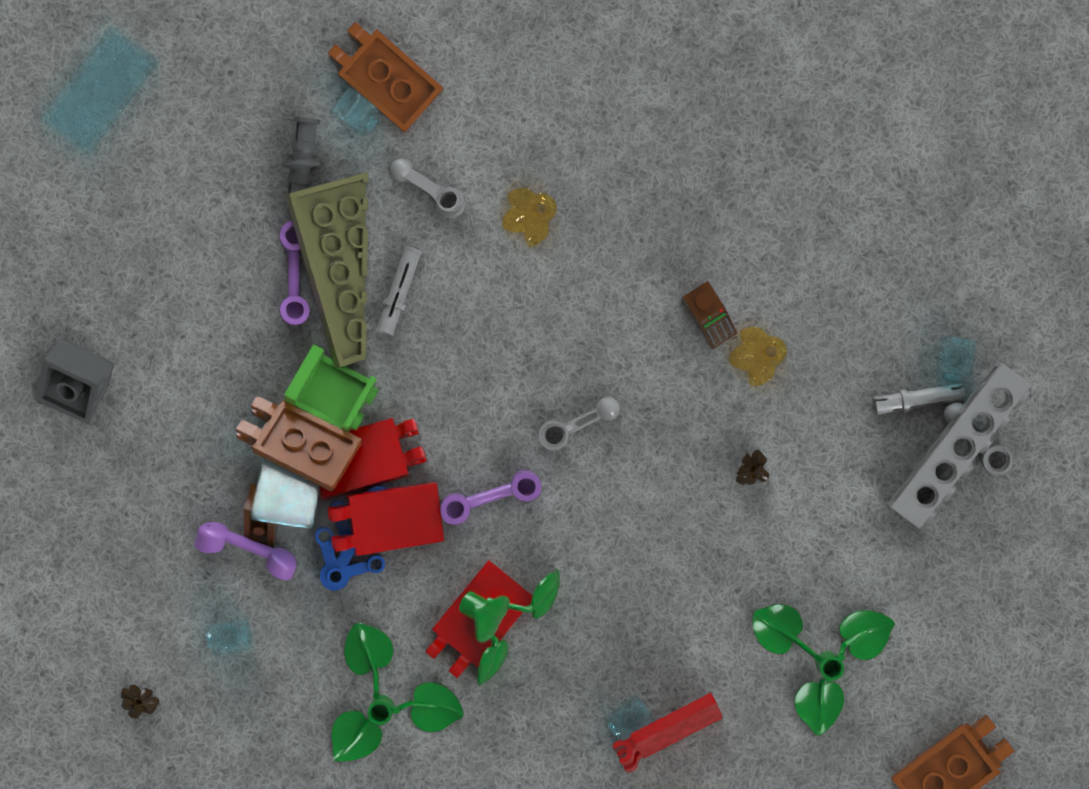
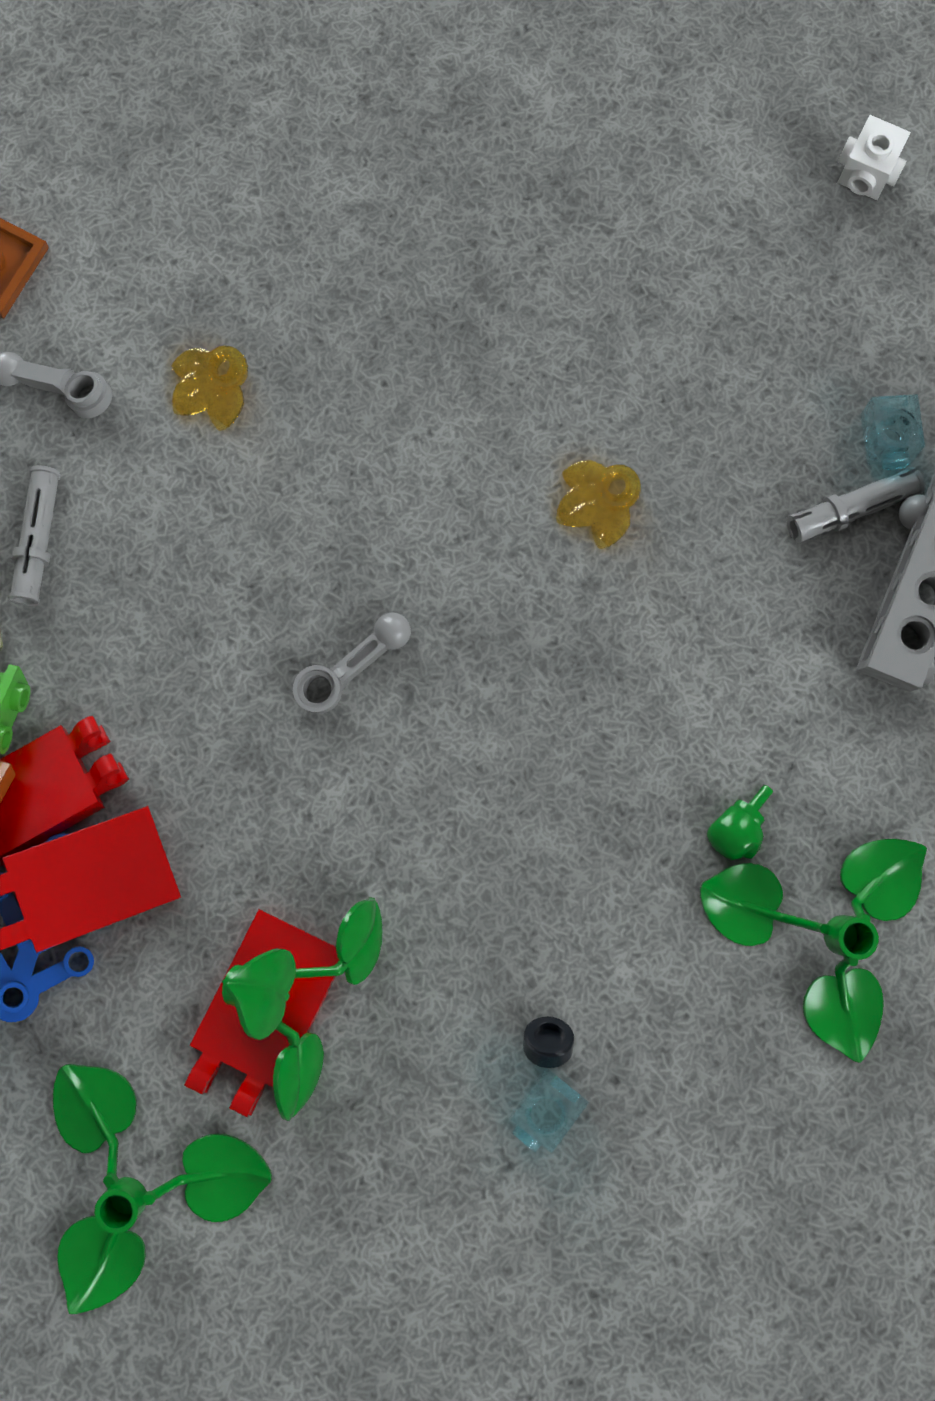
camera: 15 degrees left, 10 degrees down
(456, 507) = (191, 839): medium lavender piece -> none
(640, 679) = (548, 1042): none -> black tile
(667, 731) = (614, 1117): red tile -> none
(709, 314) = (509, 455): reddish brown slope -> none
(752, 469) = (637, 666): dark brown plant -> none
(787, 583) = (739, 829): none -> green piece
(1009, 163) = (873, 158): none -> white brick

